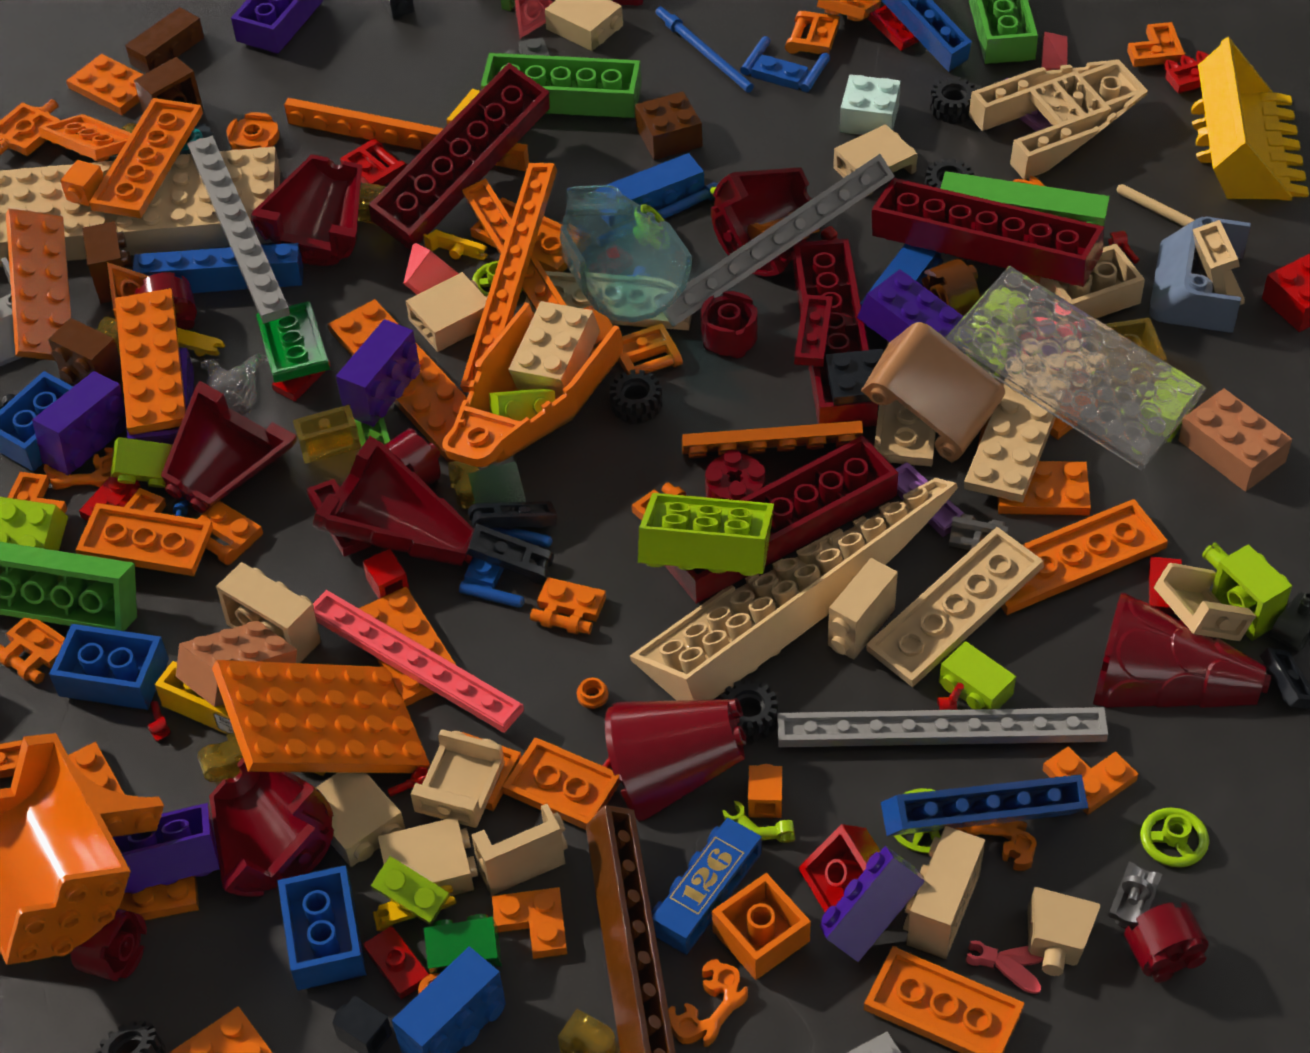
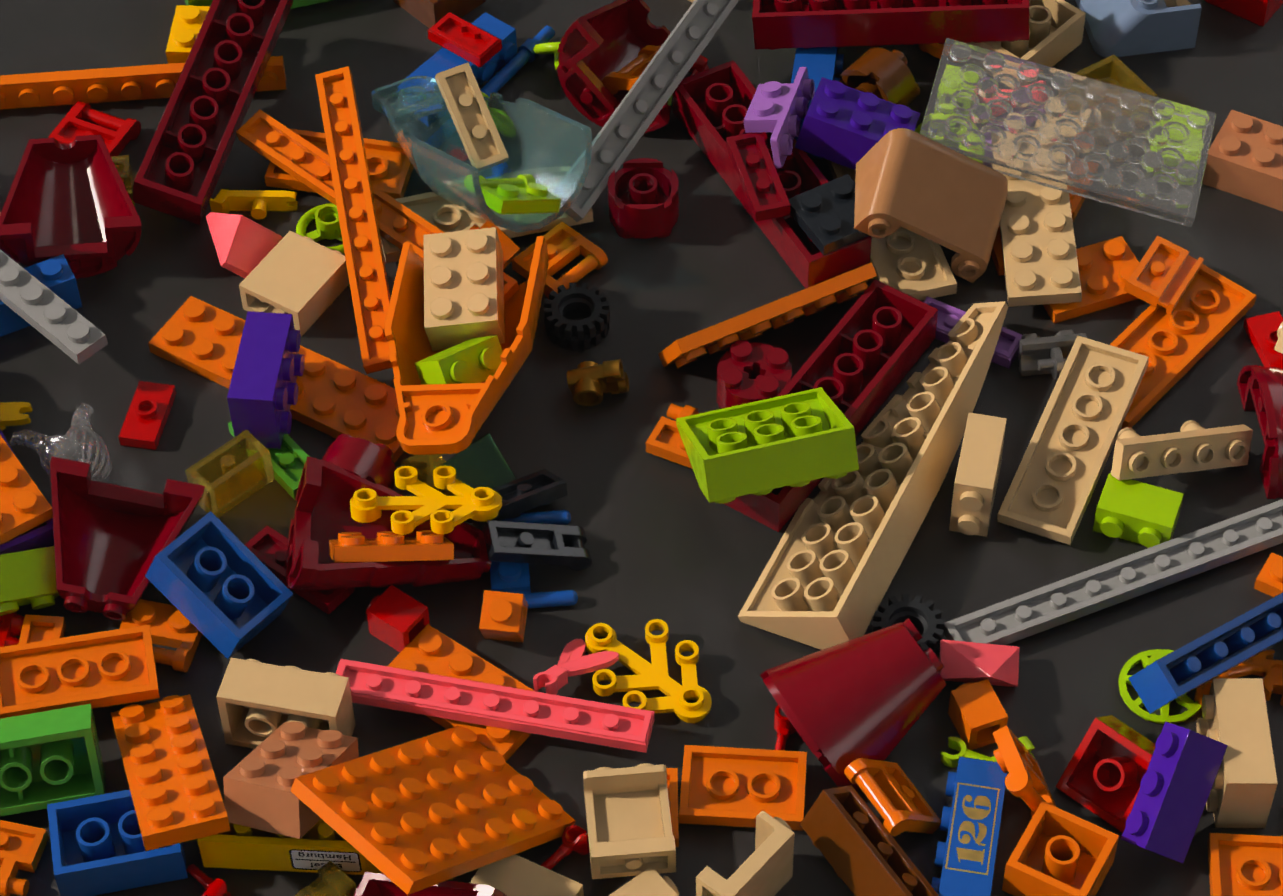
camera: 25 degrees left, 0 degrees up
(162, 621) = (169, 772): none -> orange plate
(181, 508) = (88, 623): blue hand -> none
(270, 509) = (218, 584): none -> blue brick
(294, 344) = (121, 381): green tile -> none
(398, 521) = (390, 547): none -> orange plate
(457, 598) = (503, 616): none -> orange brick
(475, 508) = (477, 503): none -> yellow plant
(492, 649) = (572, 663): none -> coral piece
(543, 678) = (651, 675): none -> yellow plant
(568, 599) = (632, 576): orange plate -> none
(592, 686) = (718, 664): orange plate -> none
(621, 291) = (518, 195): none -> lime plate
(623, 446) = (592, 380): none -> pearl gold plate
(625, 226) = (471, 117): none -> tan plate
(659, 168) = (464, 39): none -> red plate
(672, 826) = (893, 796): none -> orange plate
(770, 839) = (1024, 774): none -> orange plate
(788, 752) = (978, 662): none -> coral slope
(851, 287) = (780, 110): none -> medium lavender bracket
(950, 702) = (1123, 547): red hand -> none
(1032, 643) = (1180, 451): none -> tan plate
(1097, 501) = (1163, 274): none -> orange plate

